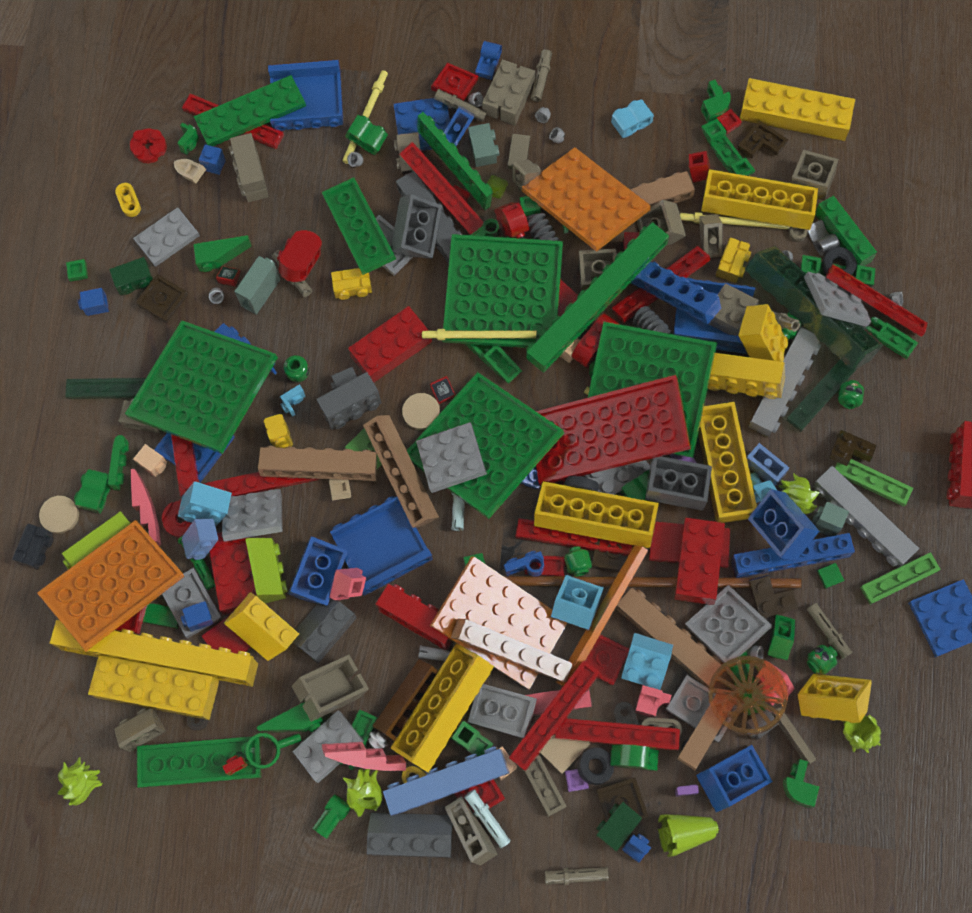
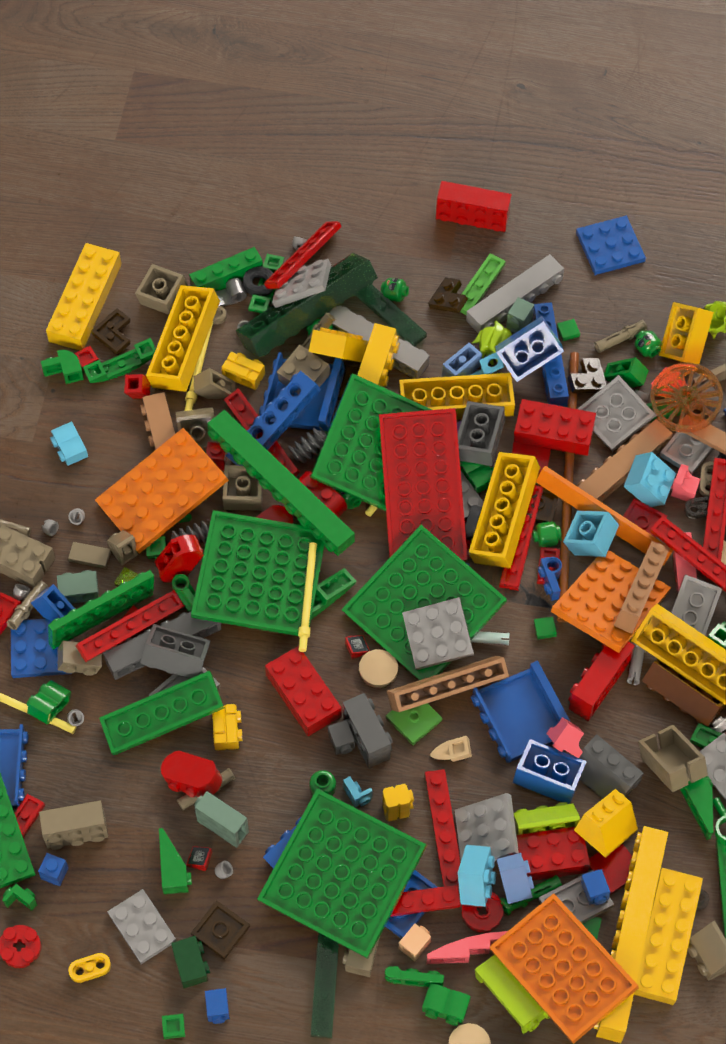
camera: 90 degrees left, 10 degrees down
(189, 169) = (60, 898): tan plate -> none
(317, 463) = (434, 764): medium nougat brick -> none
(892, 337) = (341, 248): green hinge -> none
(900, 578) = (574, 276): bright green plate -> none

